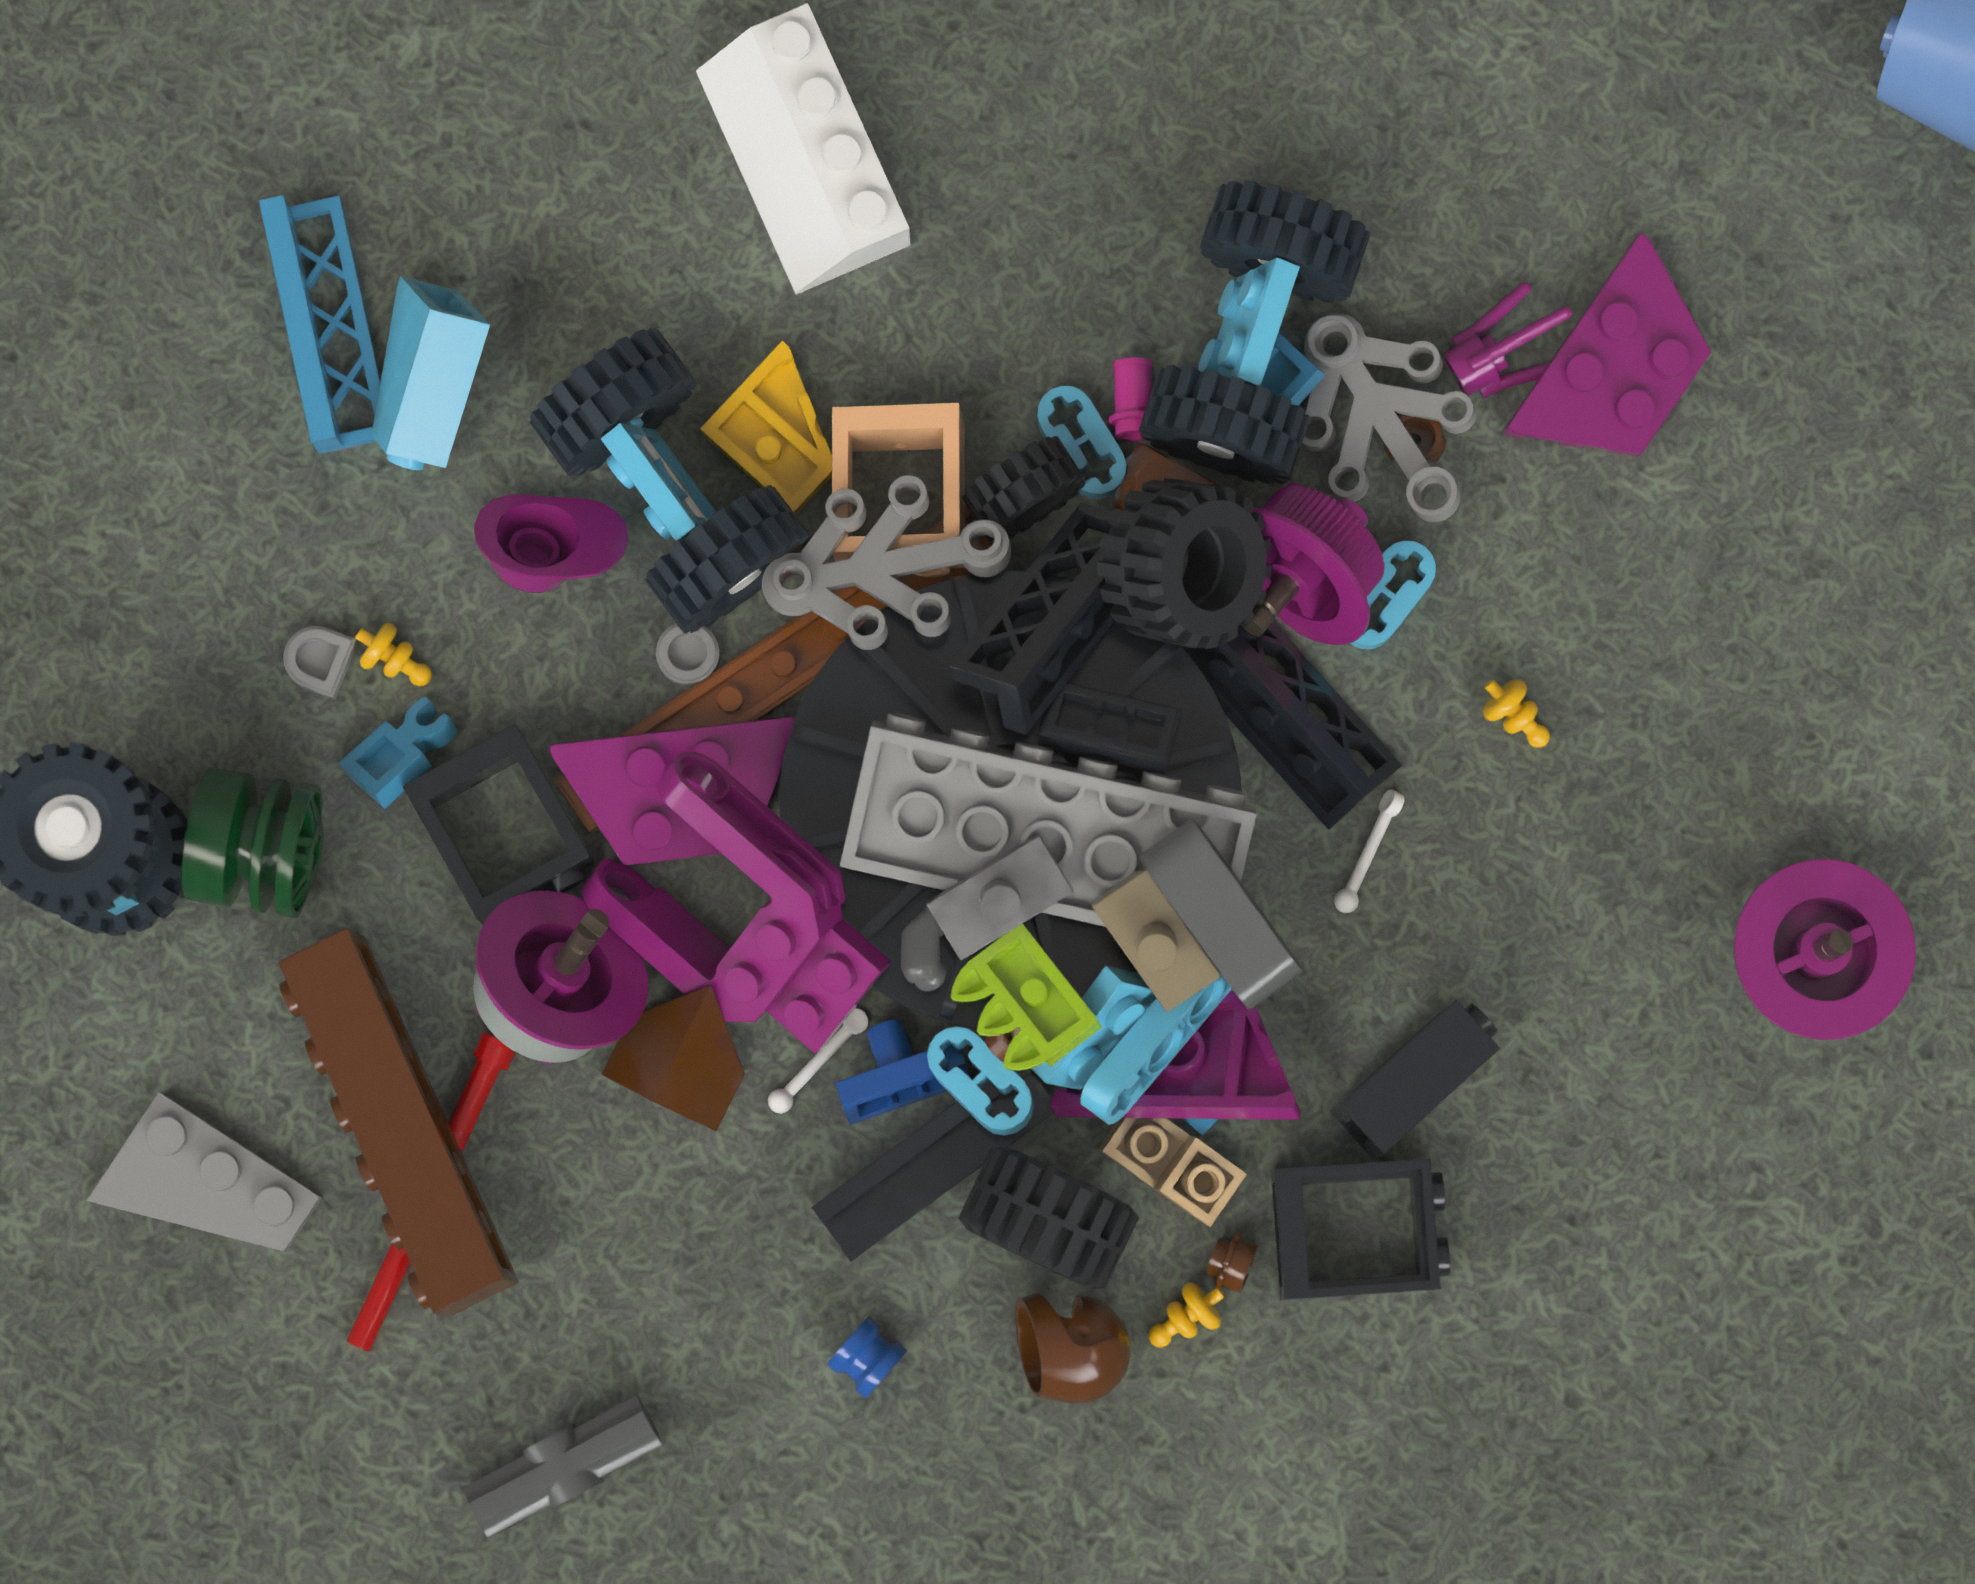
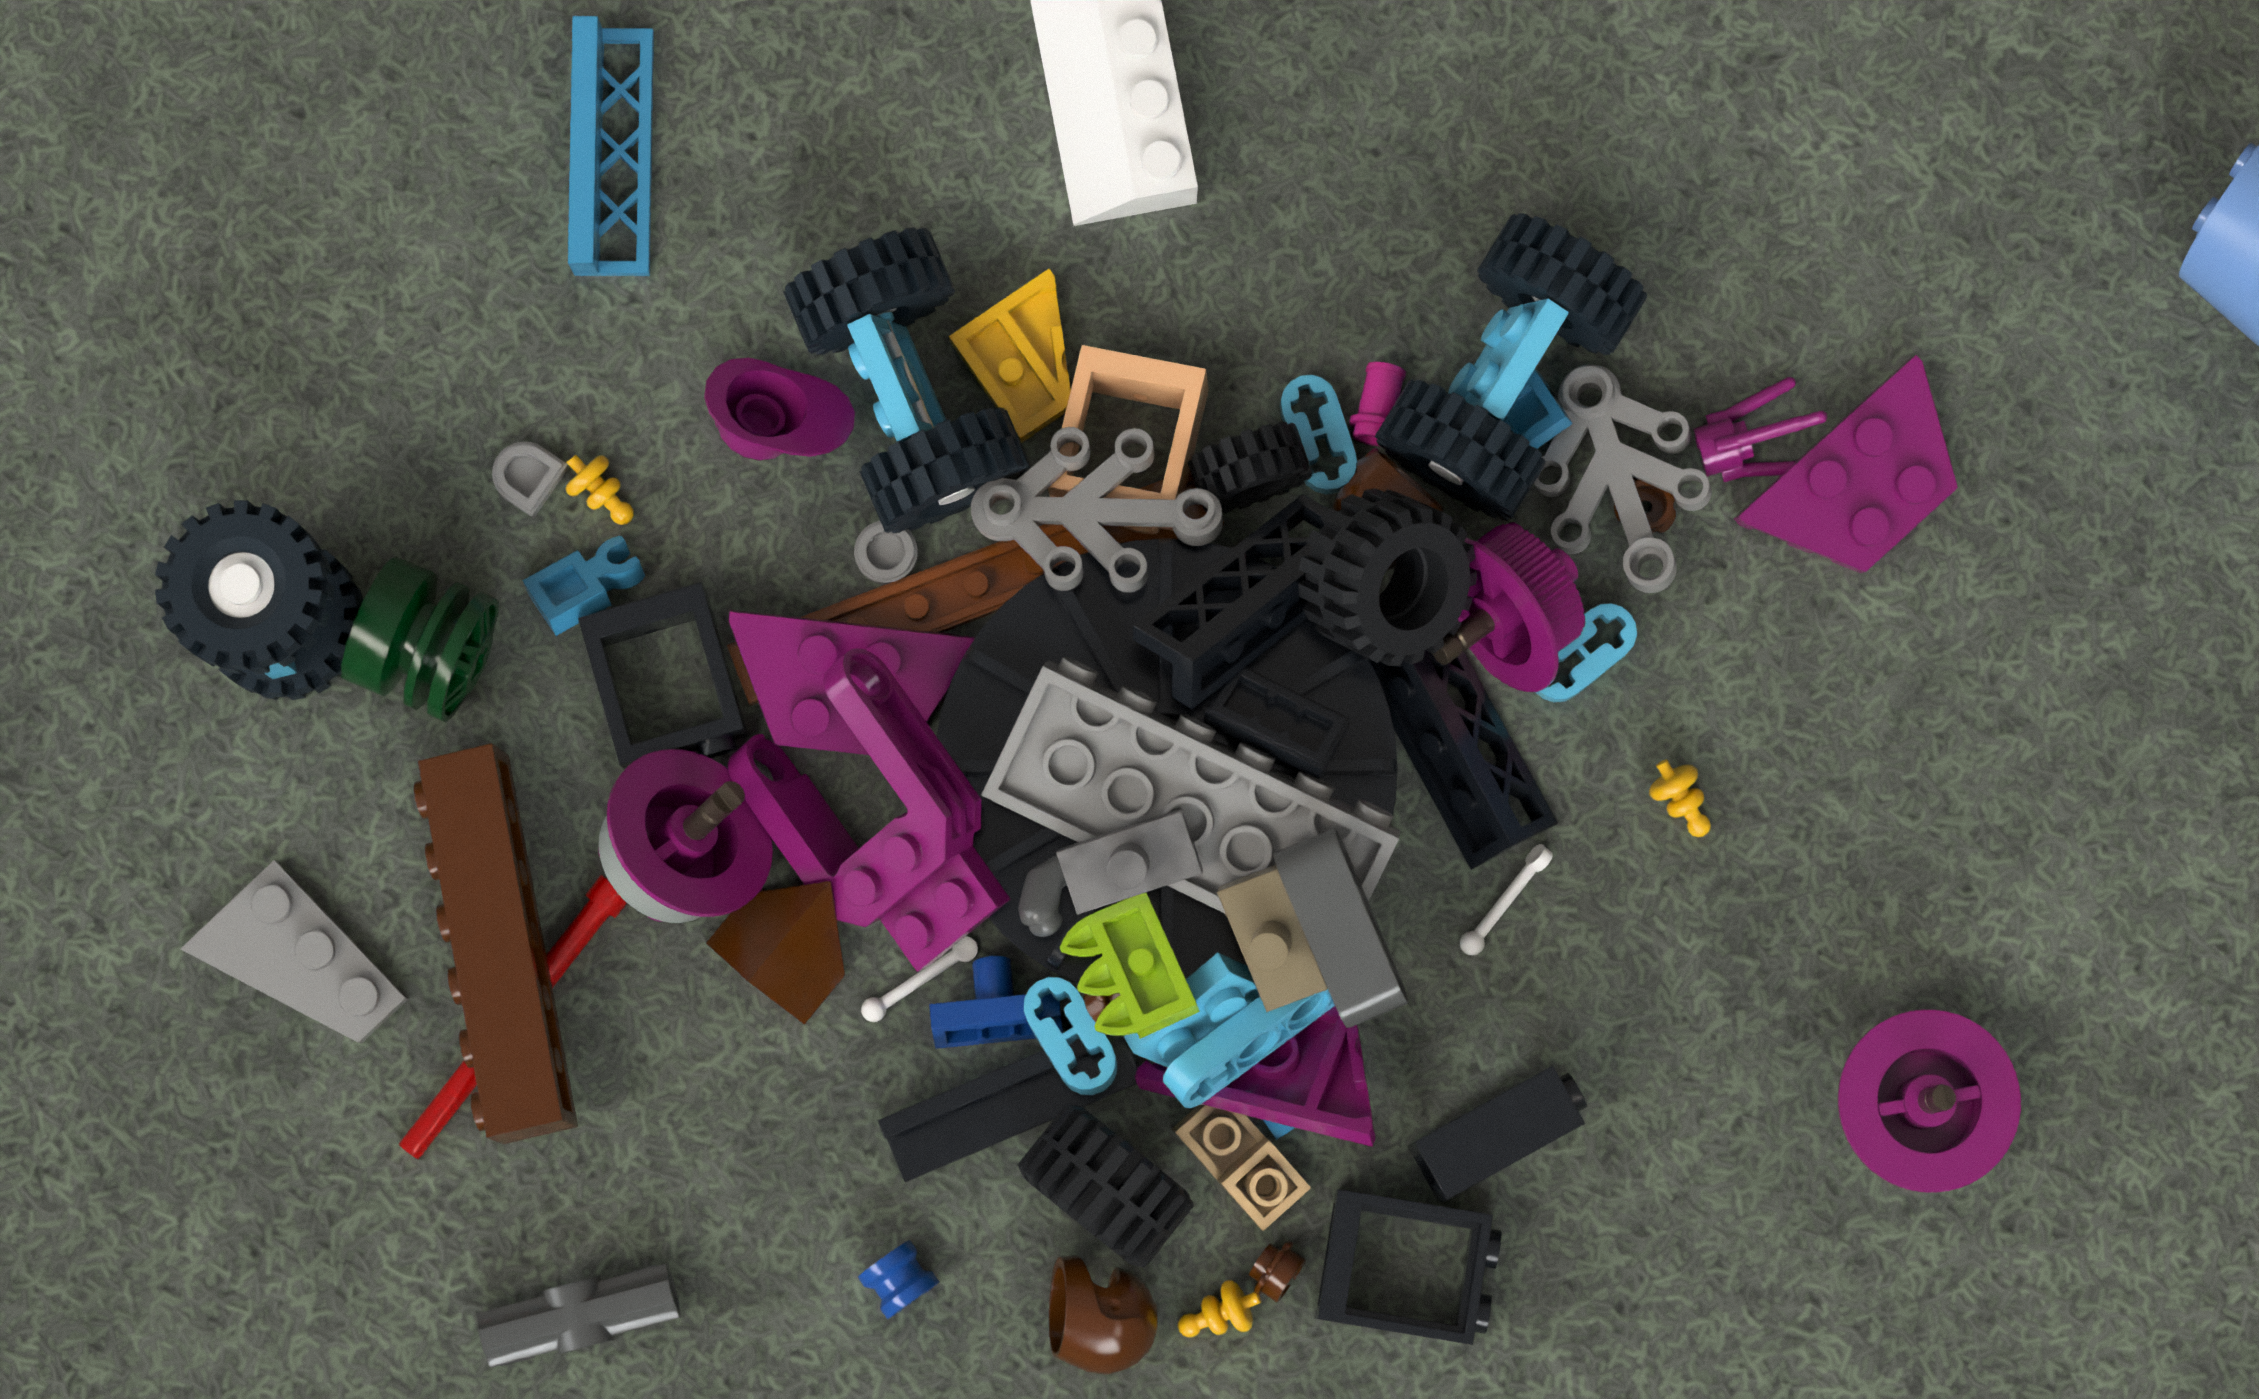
camera: 15 degrees right, 0 degrees up
(426, 373) = (696, 221): medium azure slope -> none

